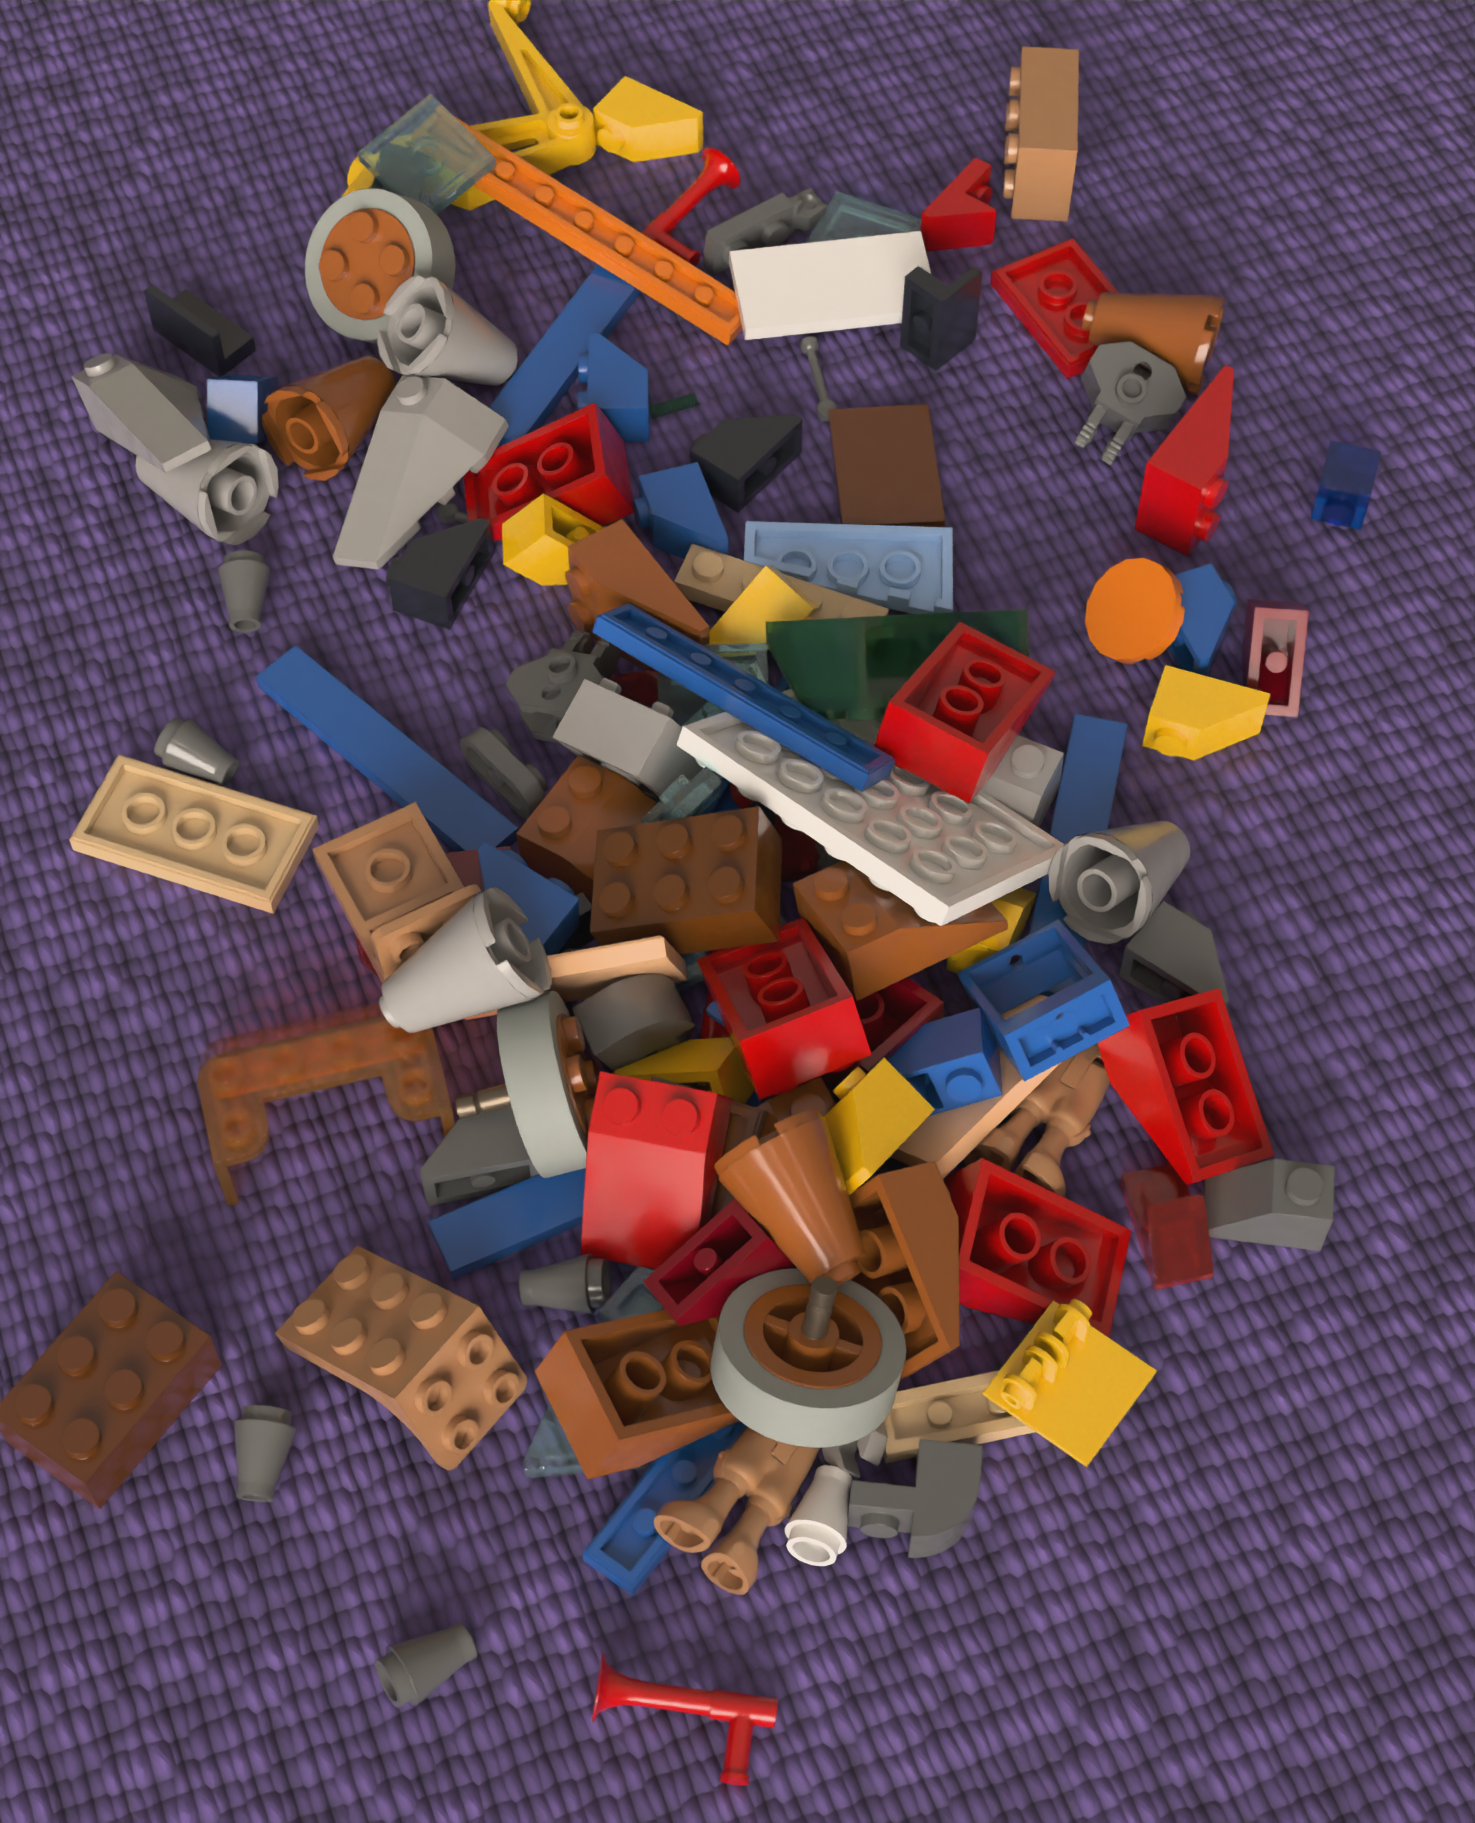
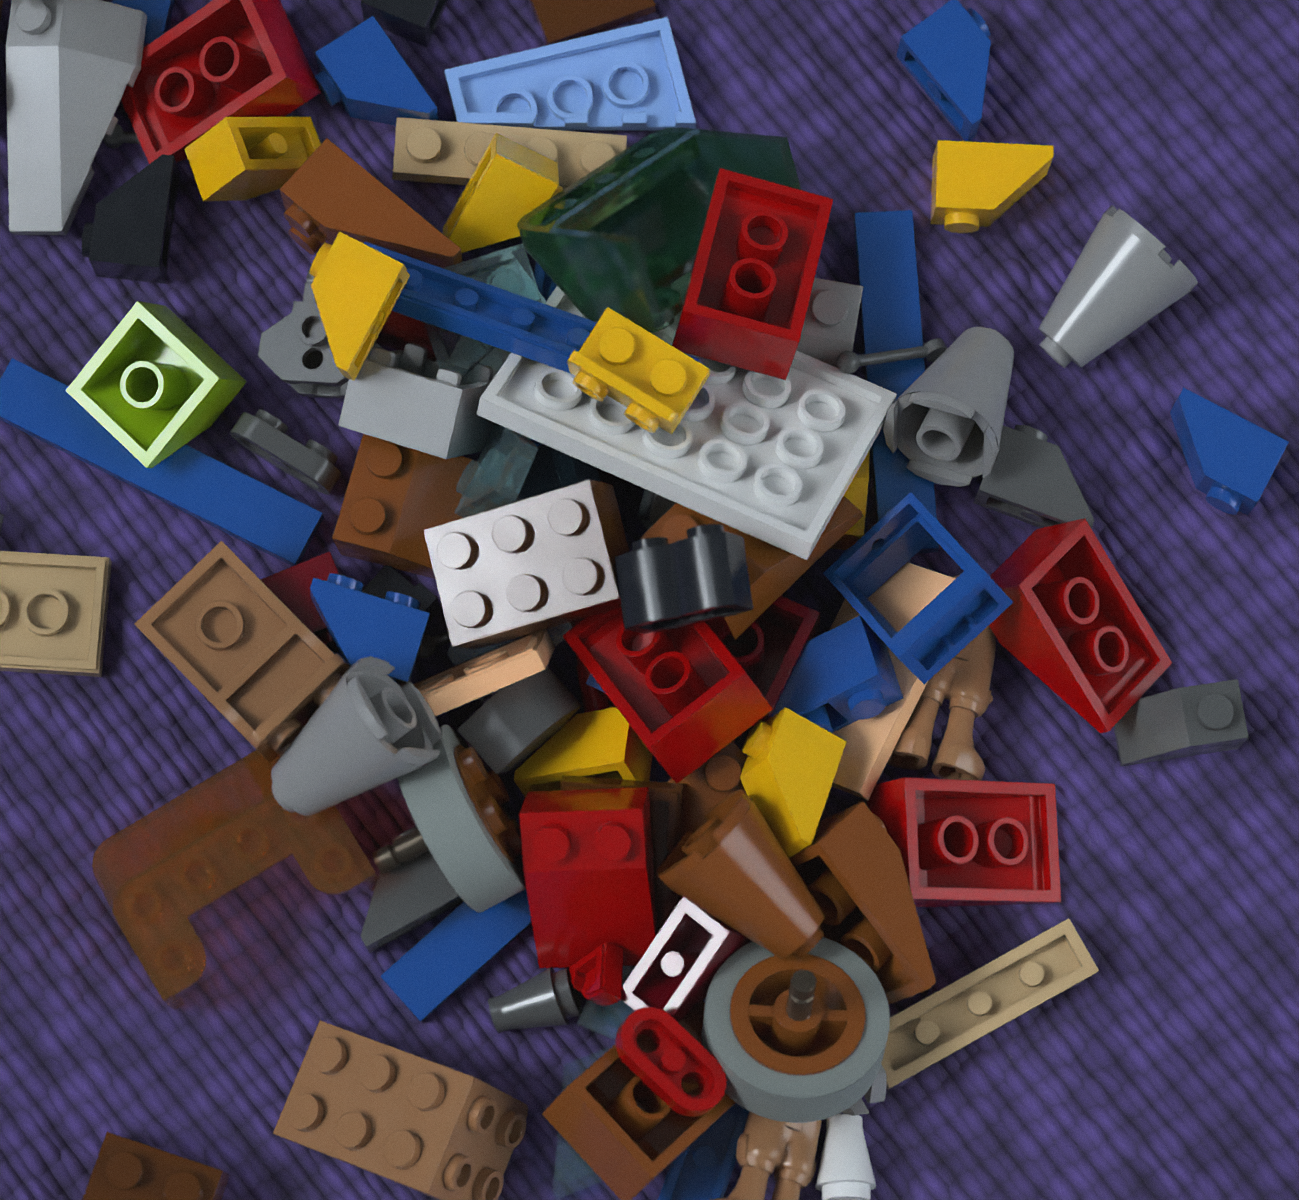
camera: 20 degrees left, 20 degrees up
(409, 687) = (155, 383): none -> lime slope
(601, 623) = (354, 297): none -> yellow slope
(634, 1263) = (599, 975): none -> red tile
(677, 1346) = (674, 1057): none -> red plate
(818, 909) = (683, 581): none -> black brick
(832, 741) = (638, 372): none -> yellow bracket
(933, 1510) = (951, 1114): dark grey brick -> none
(1033, 812) = (849, 361): none -> dark grey hinge
(1070, 1381) = (1040, 970): yellow hinge -> none
(1134, 611) = (888, 76): orange tile -> none
(1168, 1226) = (1088, 770): clear red slope -> none
(1275, 652) = (1042, 82): slope -> none
(1297, 821) = (1111, 290): none -> light grey cone
(1372, 984) = (1225, 452): none -> blue slope

